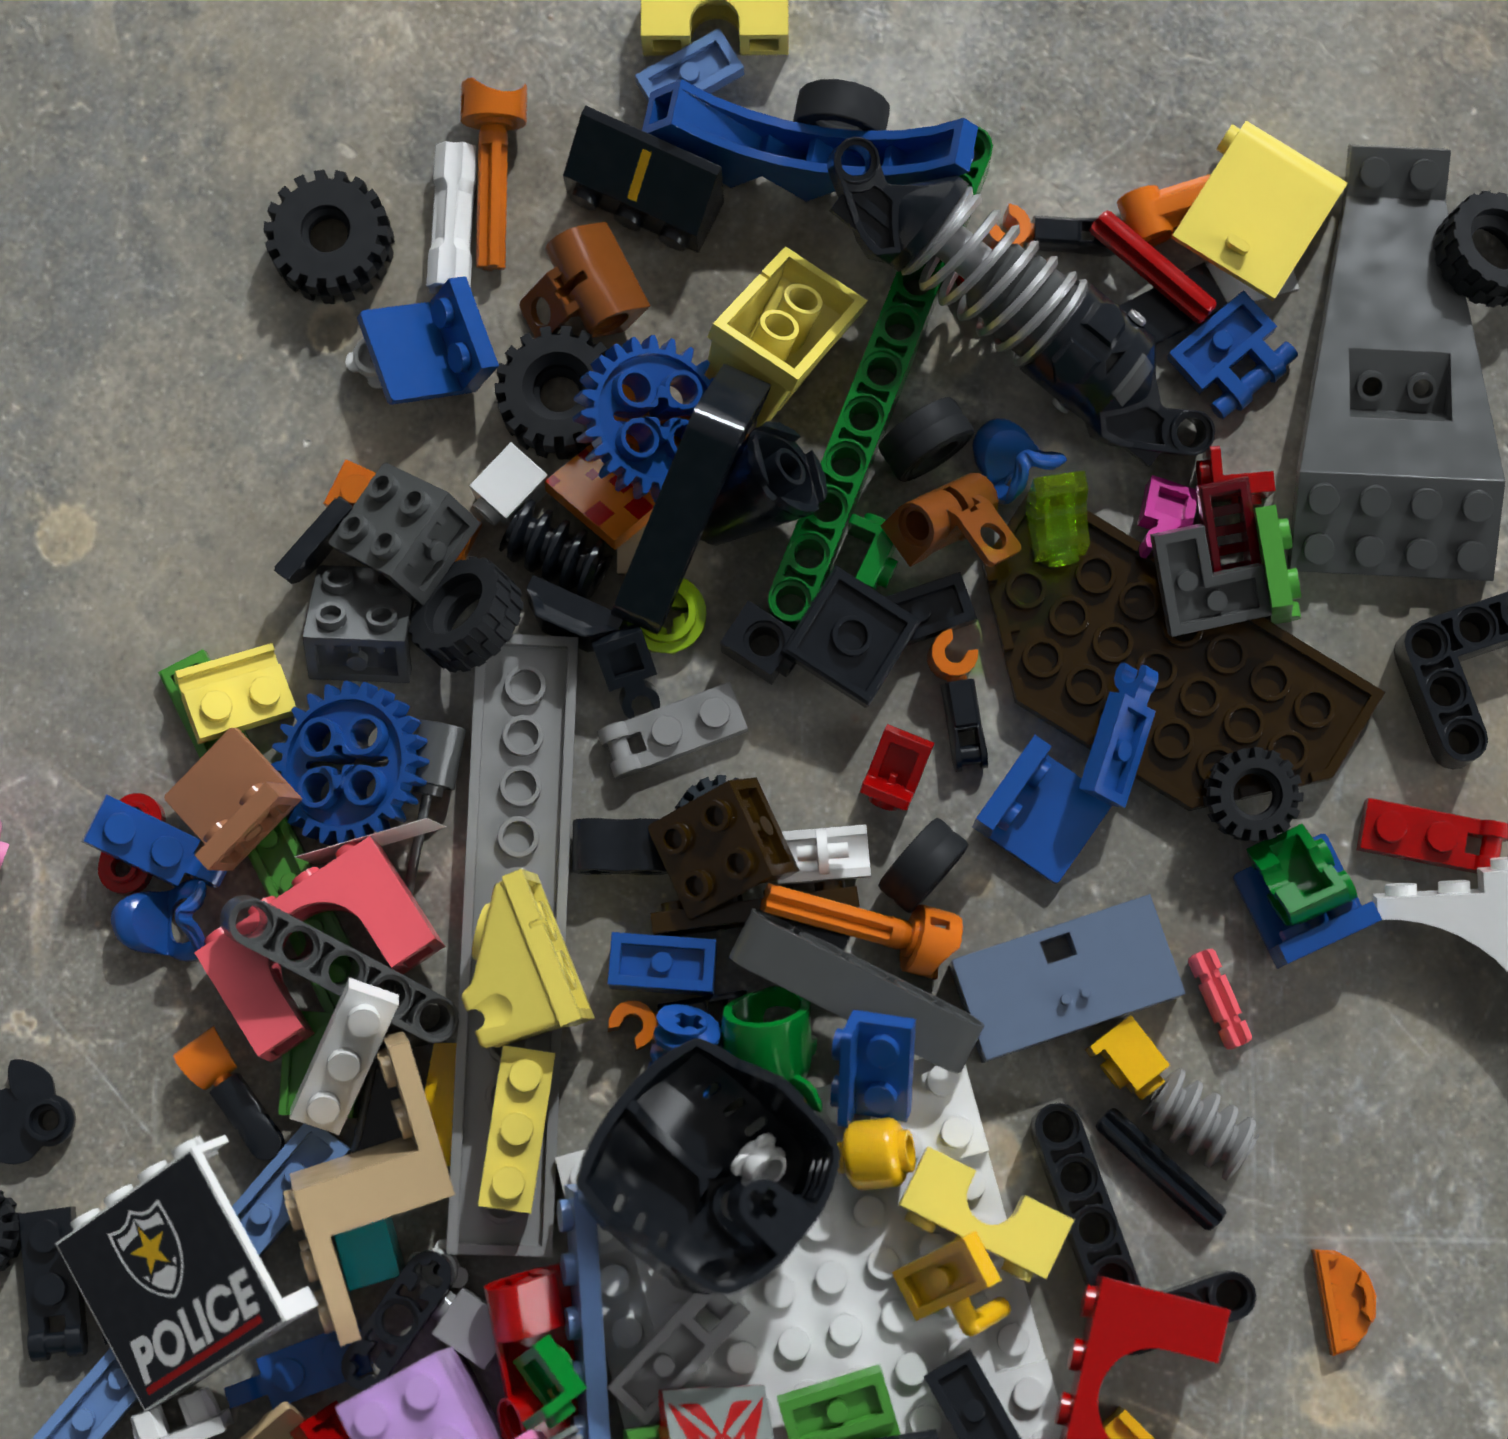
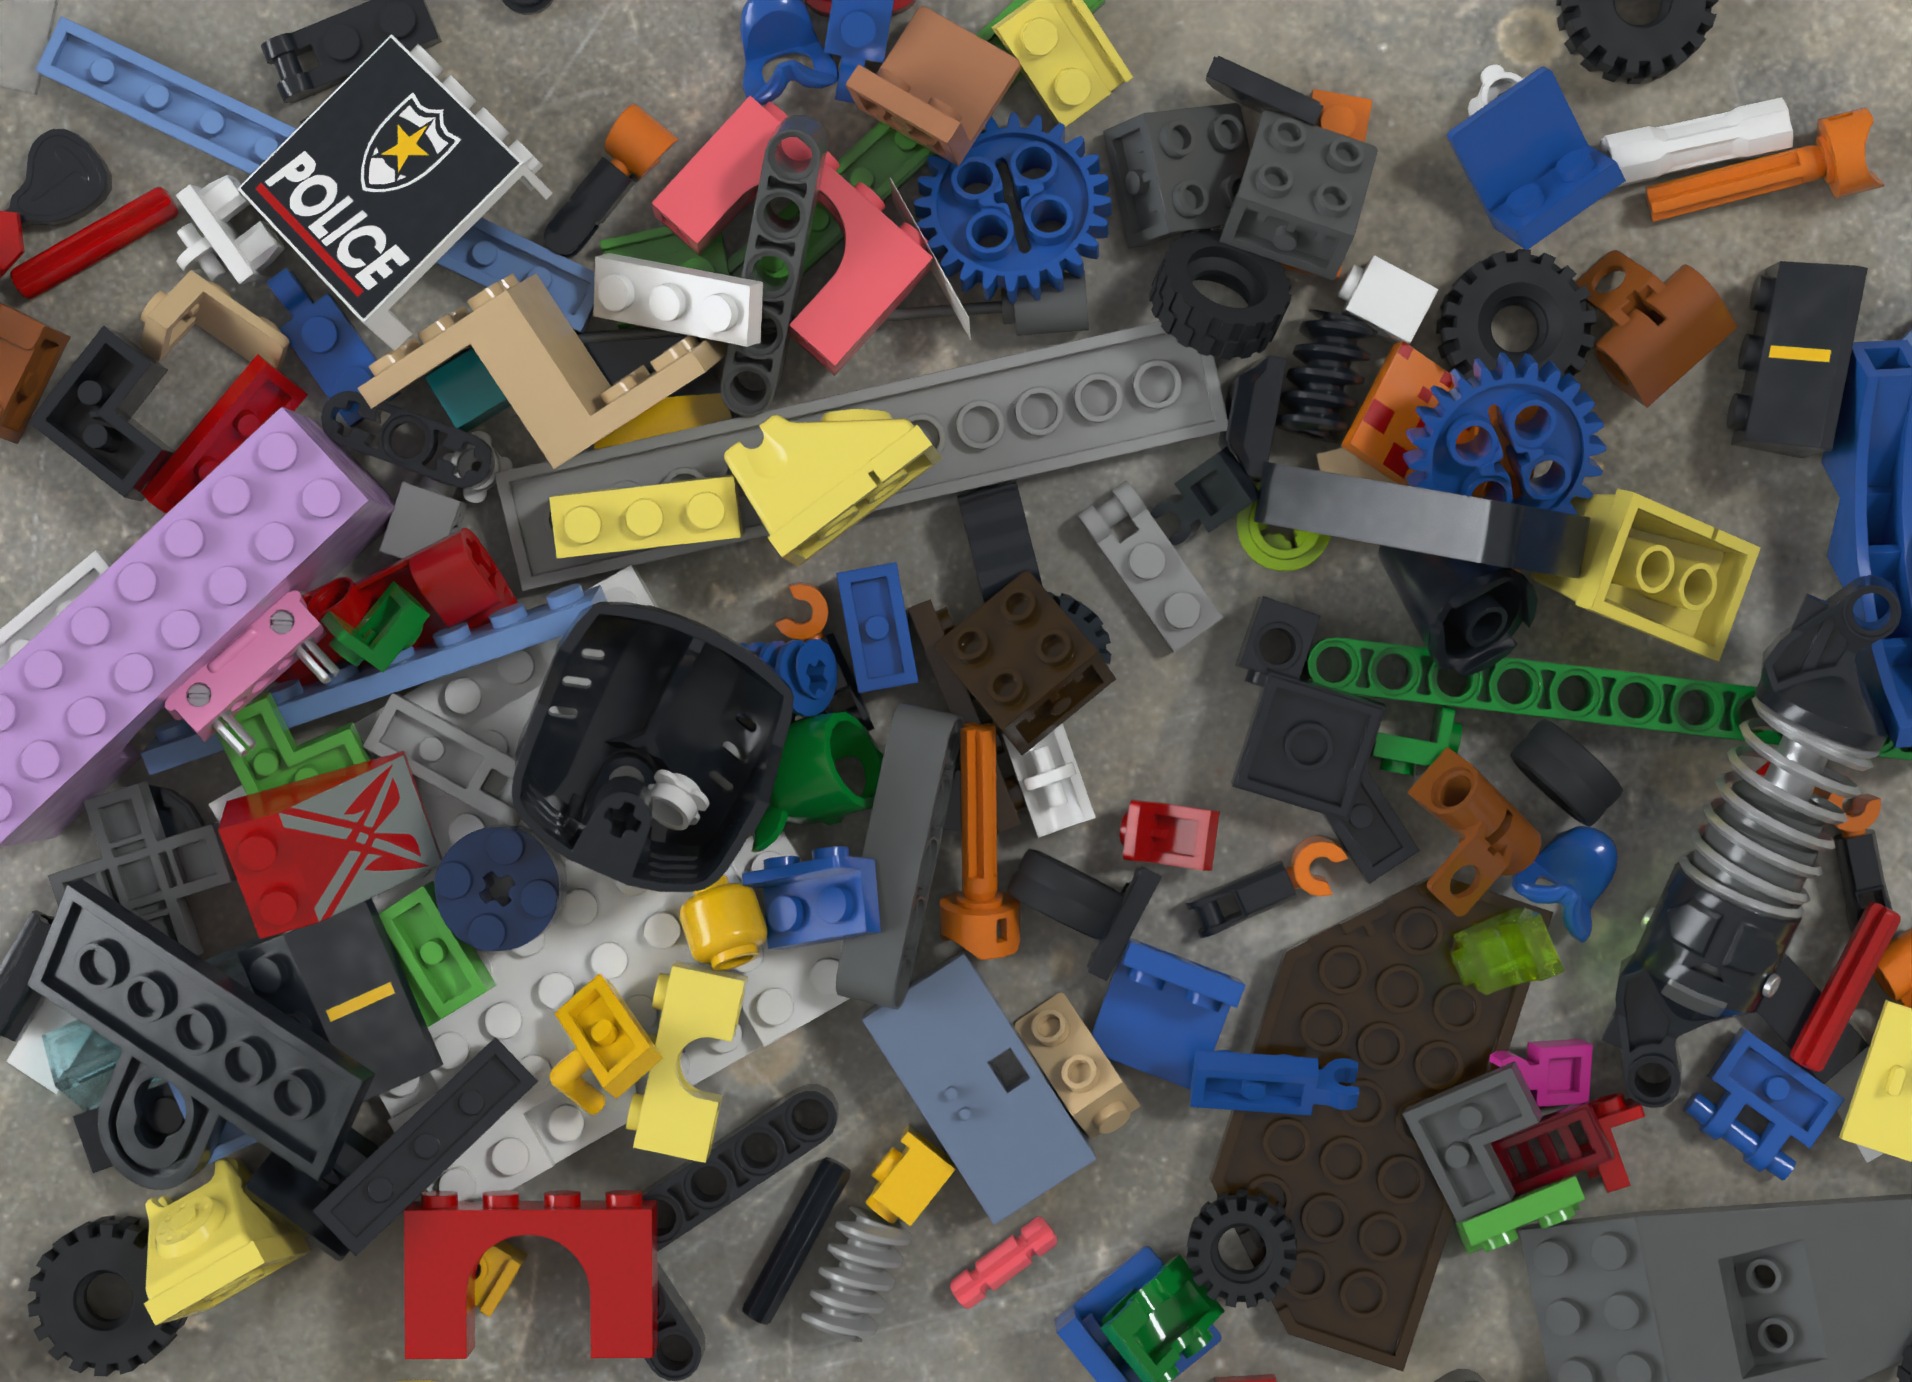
camera: 65 degrees right, 10 degrees up
(781, 1364) = (465, 881): none -> dark blue brick
(941, 807) = (1135, 899): none -> black tile
(1070, 893) = (1077, 1066): none -> tan bracket

